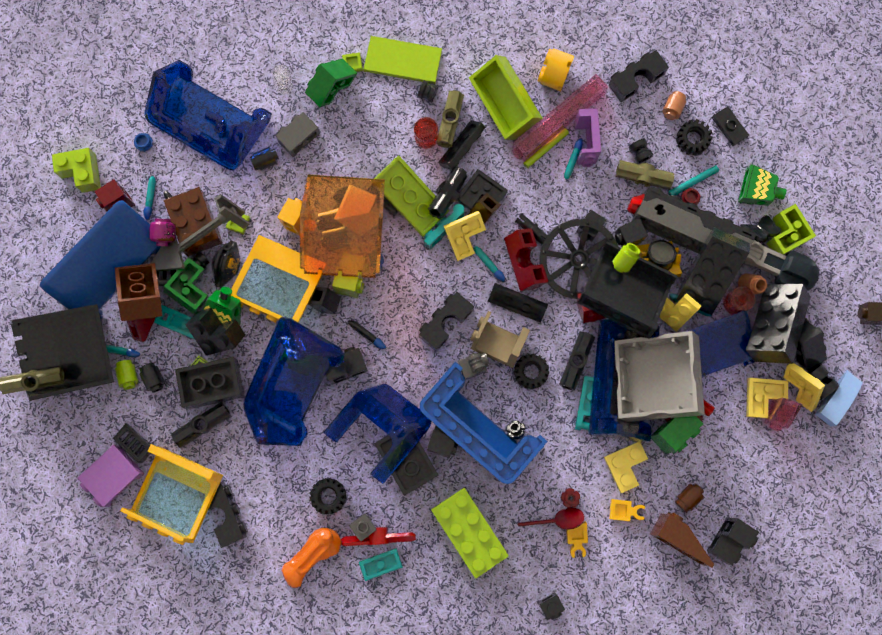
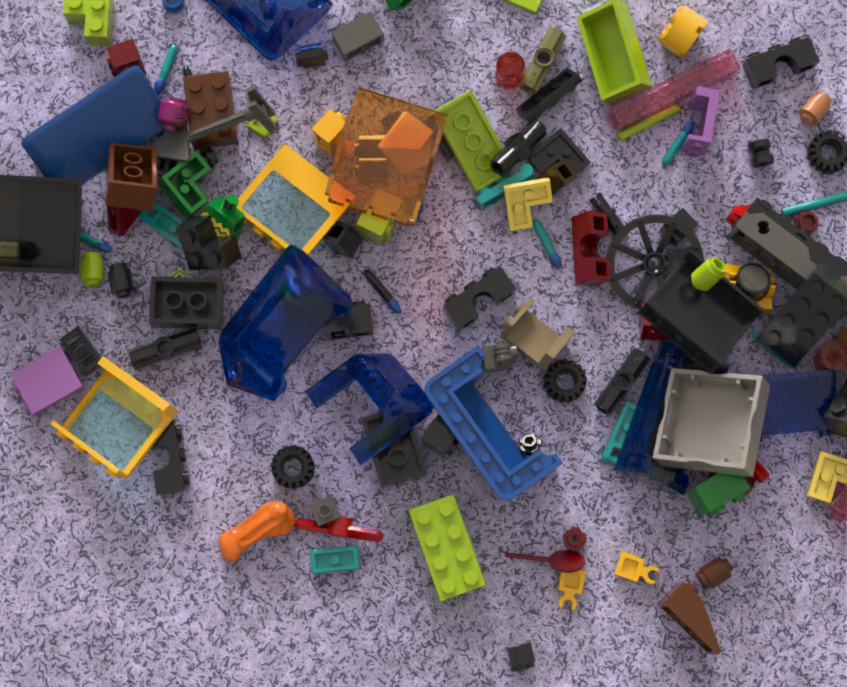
camera: 10 degrees right, 0 degrees up
(225, 263) = (236, 168): black hat -> none
(427, 91) = (524, 21): black wheel -> none
(517, 302) = (569, 297): black plate -> none
(621, 463) = (643, 514): light yellow plate -> none
(631, 233) = (722, 246): black slope -> none
(644, 174) = (758, 182): olive piece -> none
(678, 314) = (757, 355): light yellow plate -> none
(731, 539) = (750, 632): black brick -> none

